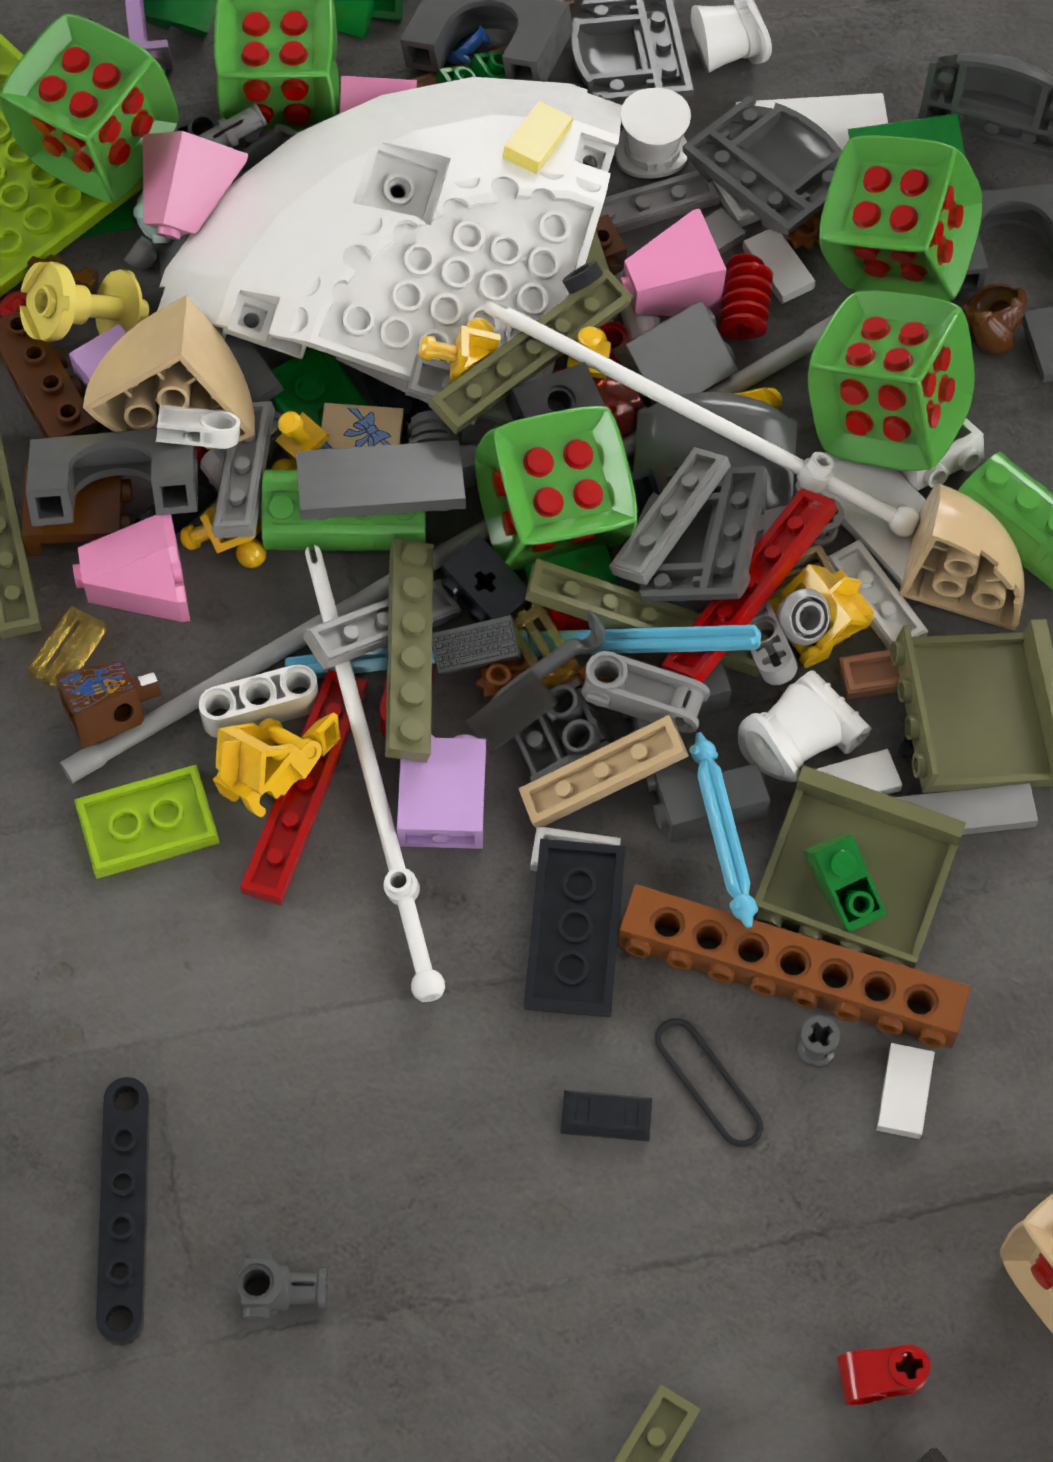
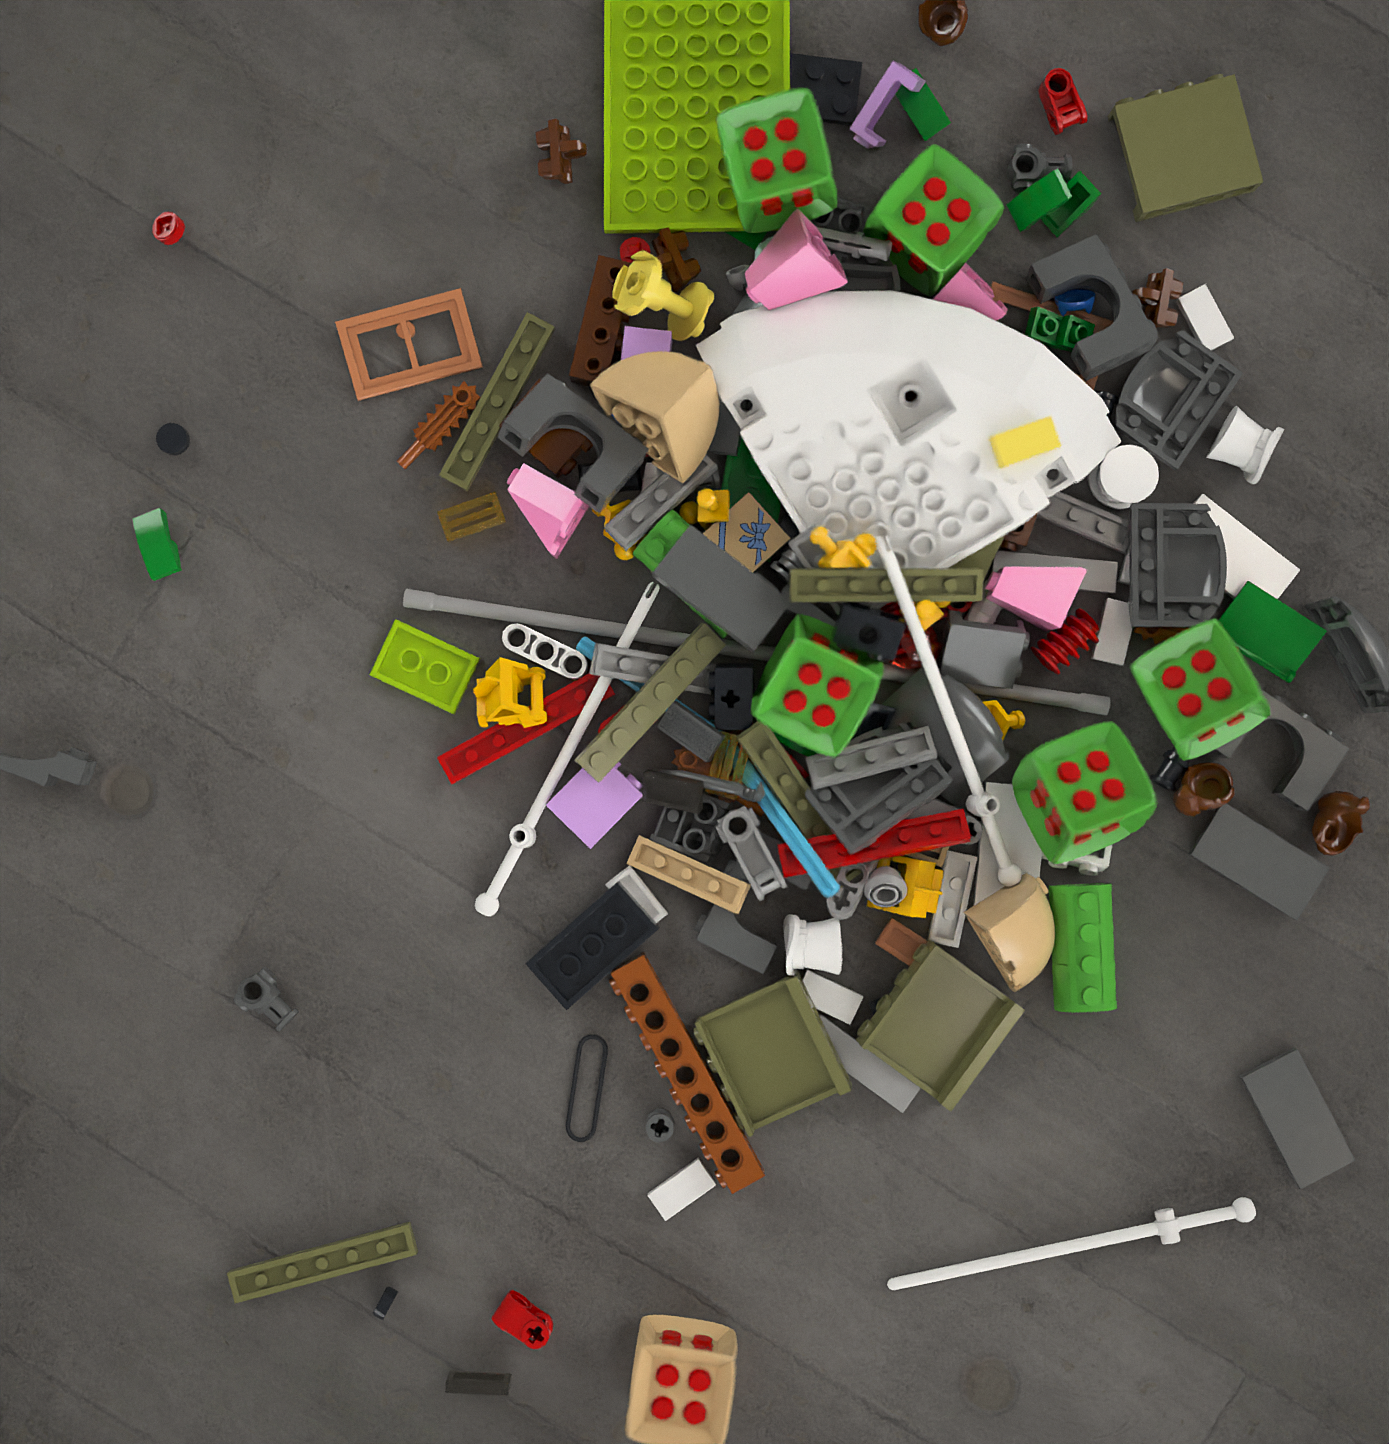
camera: 45 degrees right, 25 degrees up
(104, 700) = (457, 576): reddish brown torso -> none
(123, 1211) = (226, 882): black plate -> none
(197, 427) = (638, 451): white piece -> none
(325, 732) = (556, 707): yellow piece -> none
(582, 277) = (960, 564): black piece -> none
(606, 1115) = (516, 1057): black tile -> none
(723, 830) = (718, 970): medium azure wheel -> none
(845, 881) = (757, 1056): green slope -> none
(853, 727) = (854, 946): white axle -> none

